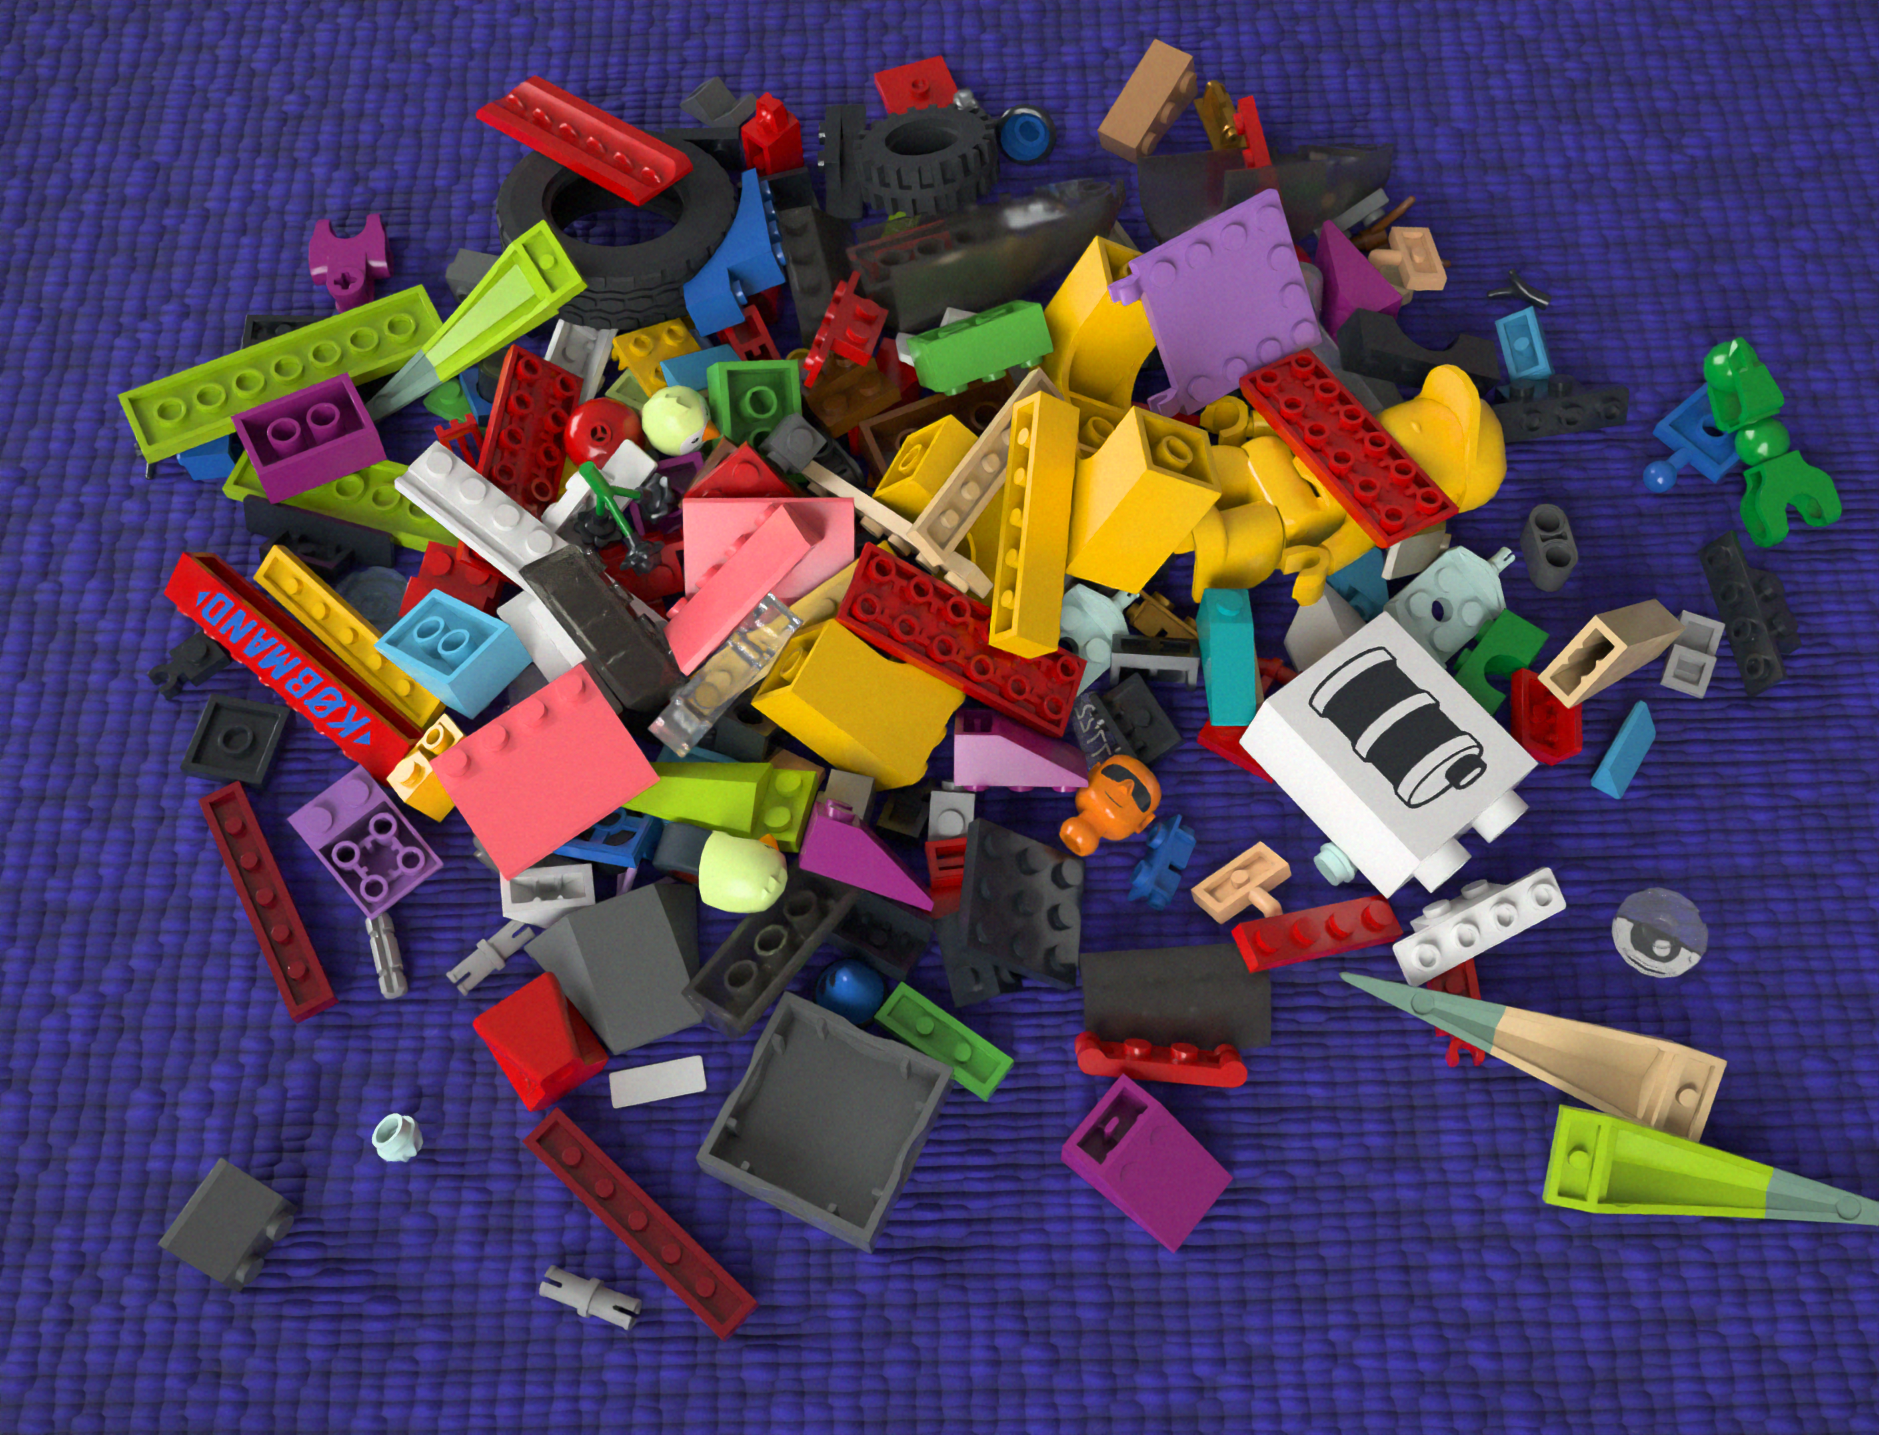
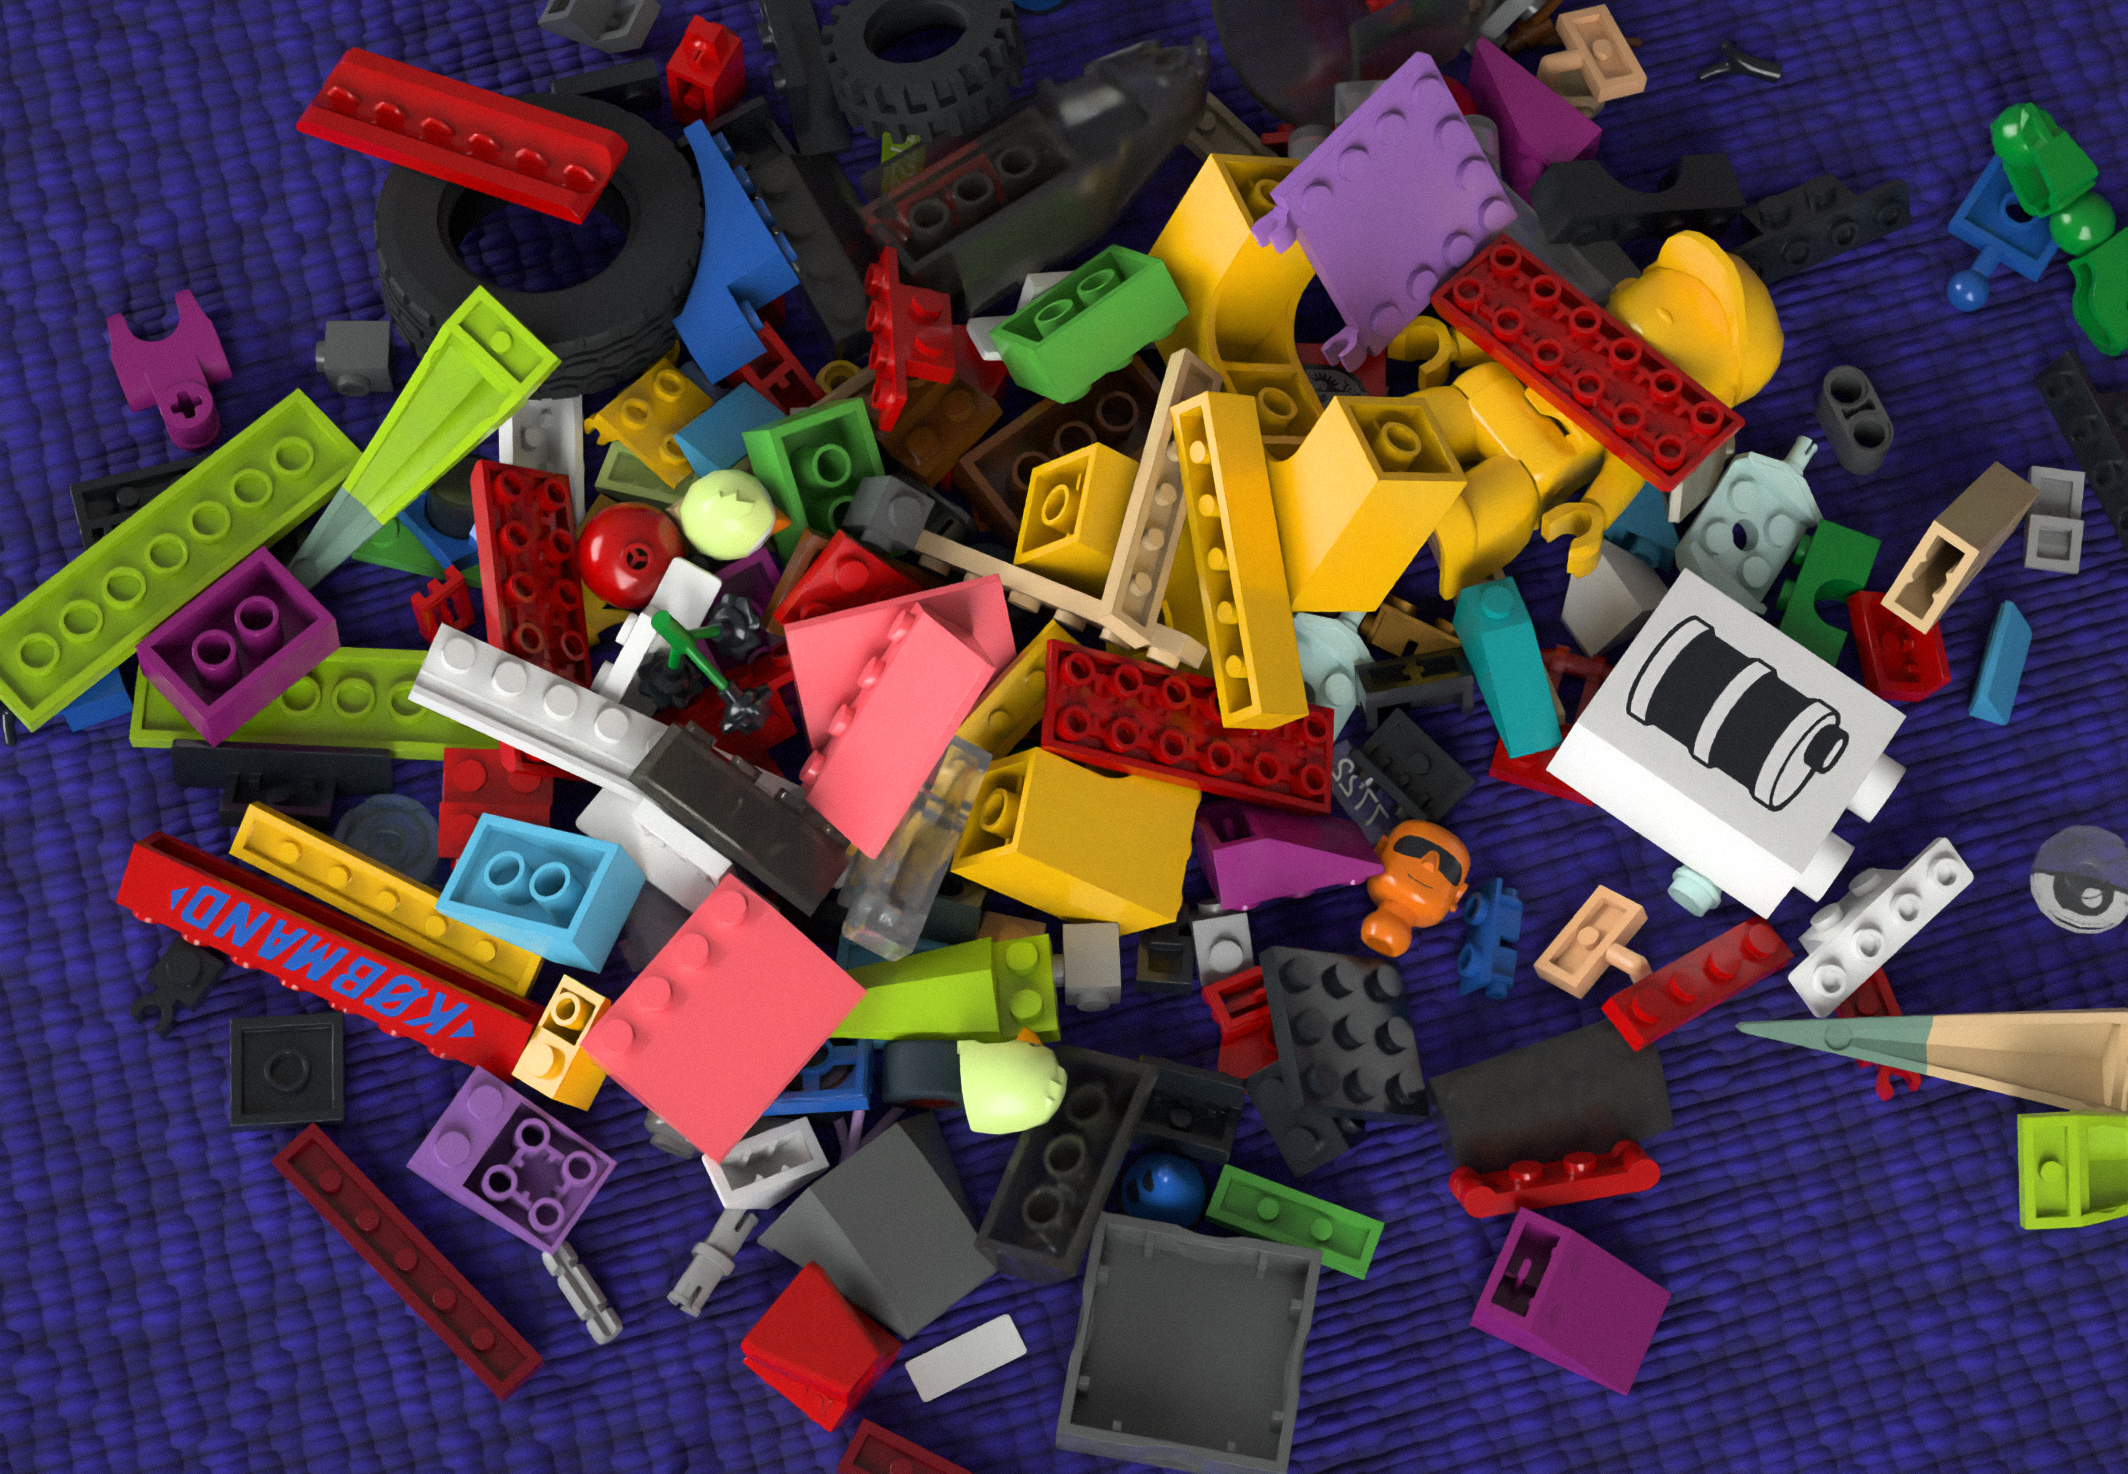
camera: 20 degrees left, 5 degrees up
(848, 850) = (1117, 1024): magenta slope -> none
(1525, 346) = (1764, 145): dark azure slope -> none

